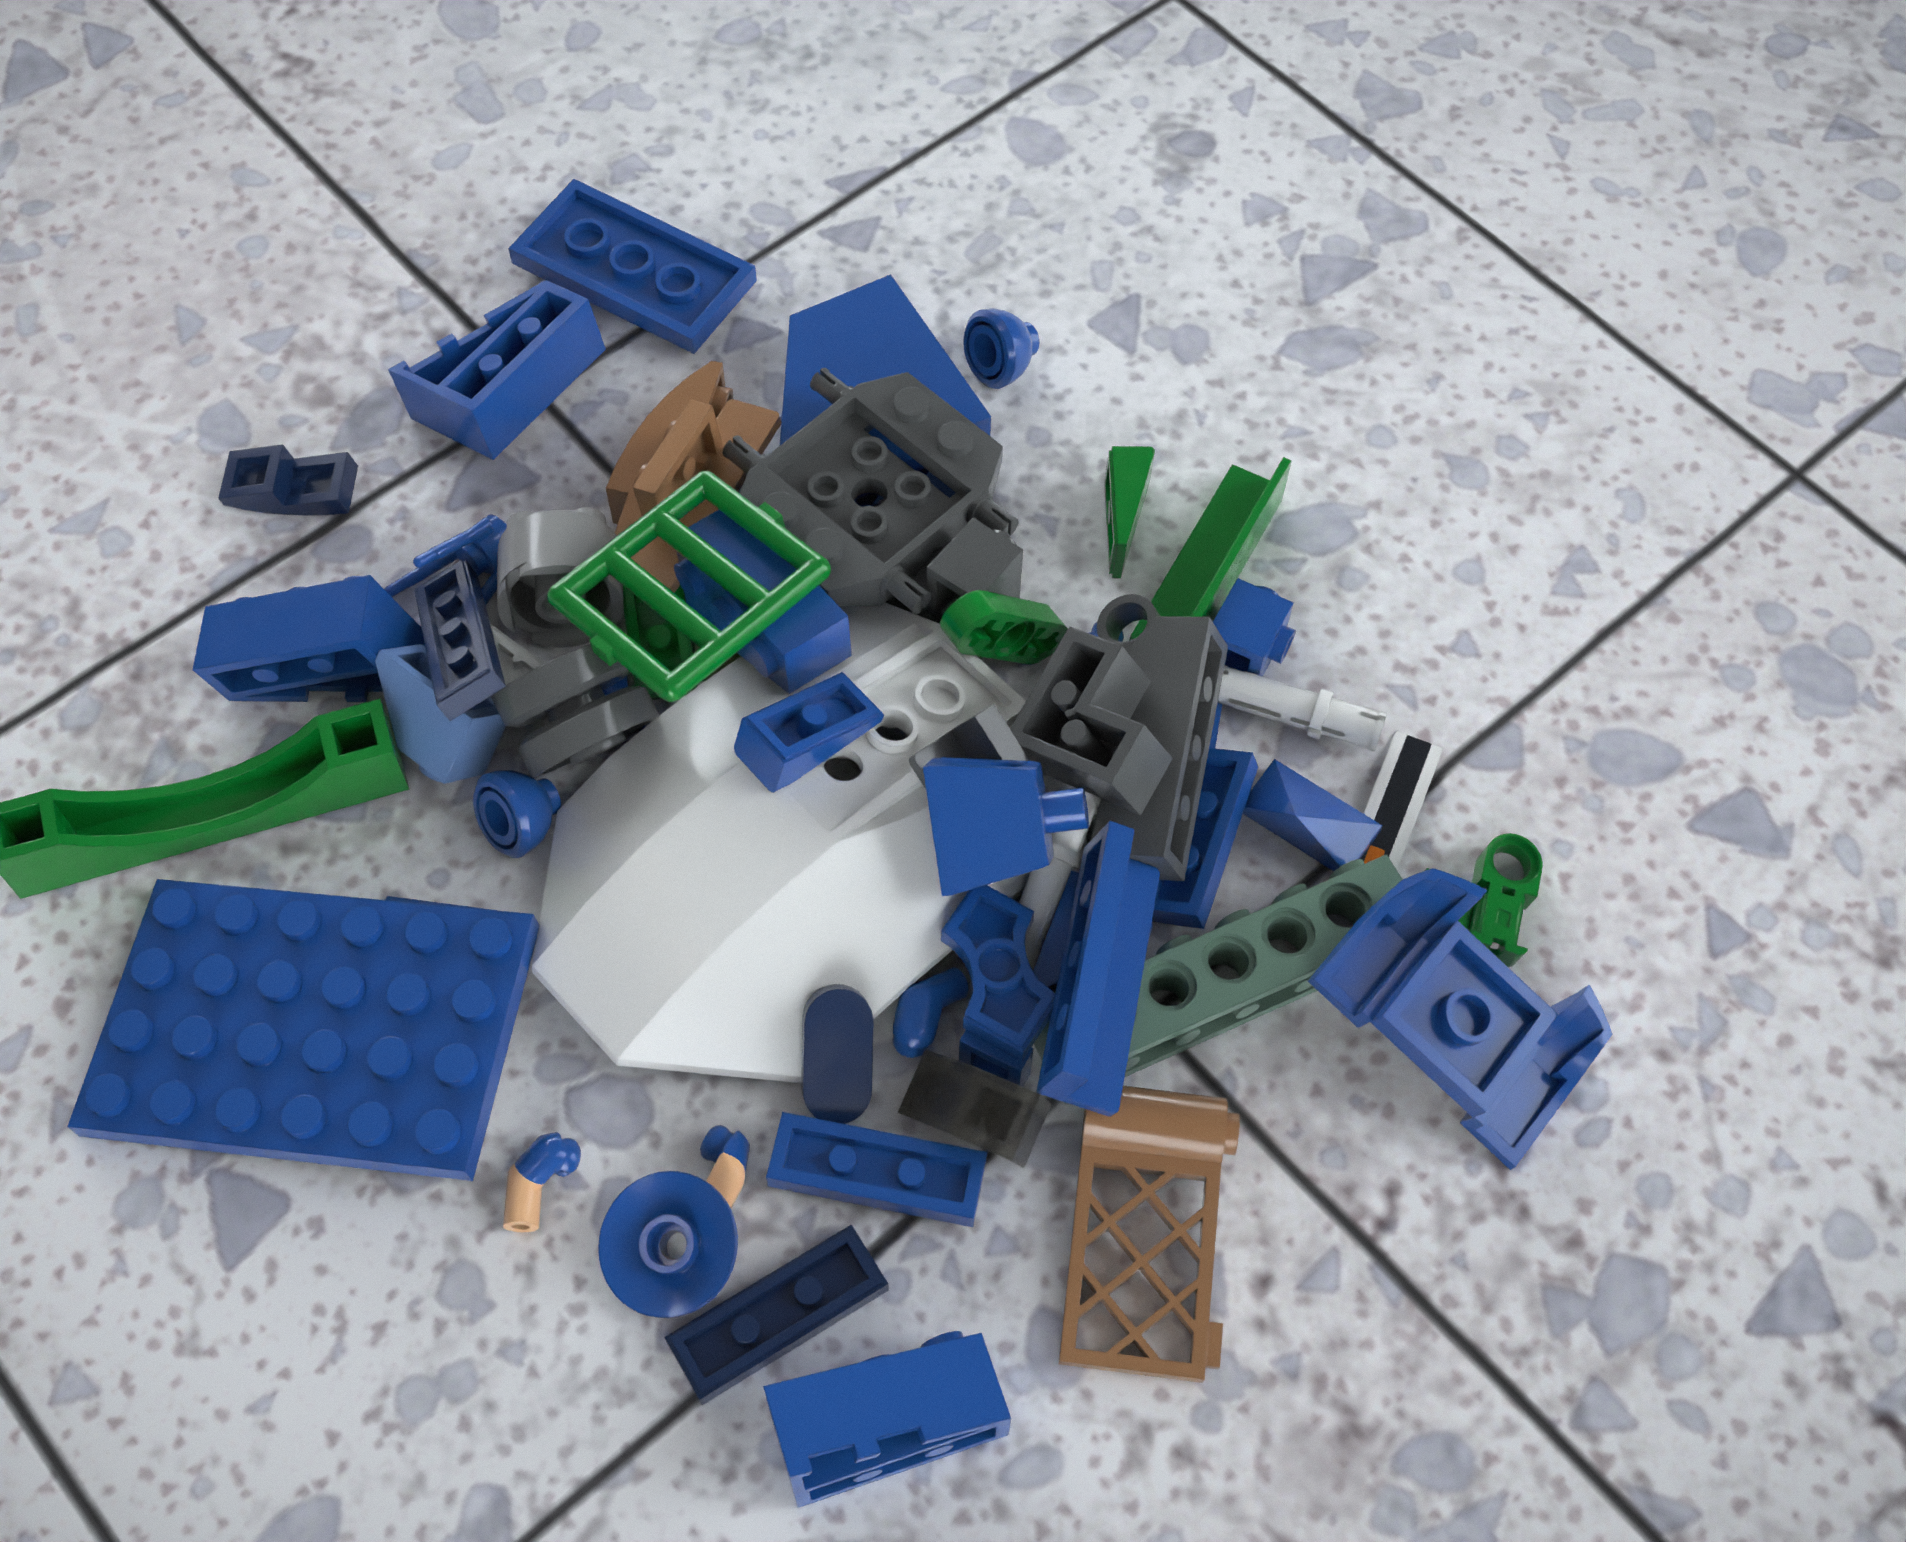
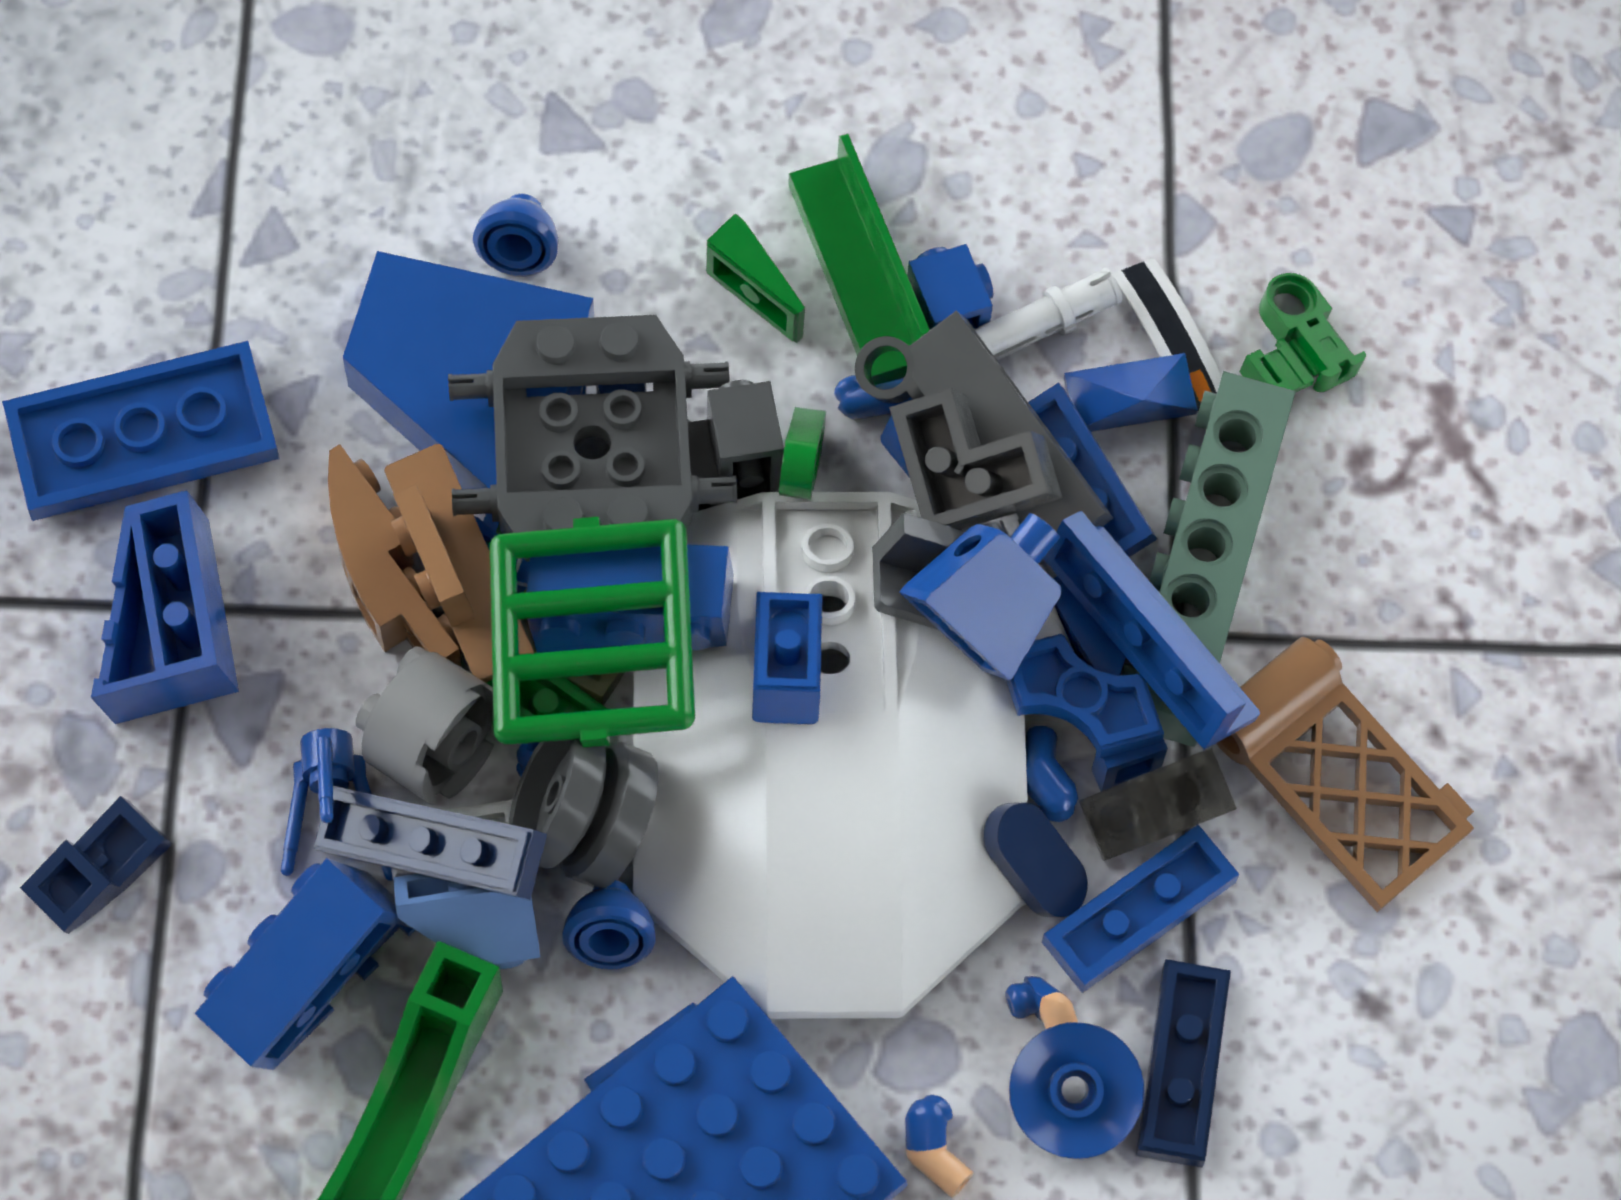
camera: 50 degrees left, 5 degrees up
(886, 1415) = (1328, 1047): blue wedge -> none
(1463, 1011) = (1375, 433): blue piece -> none

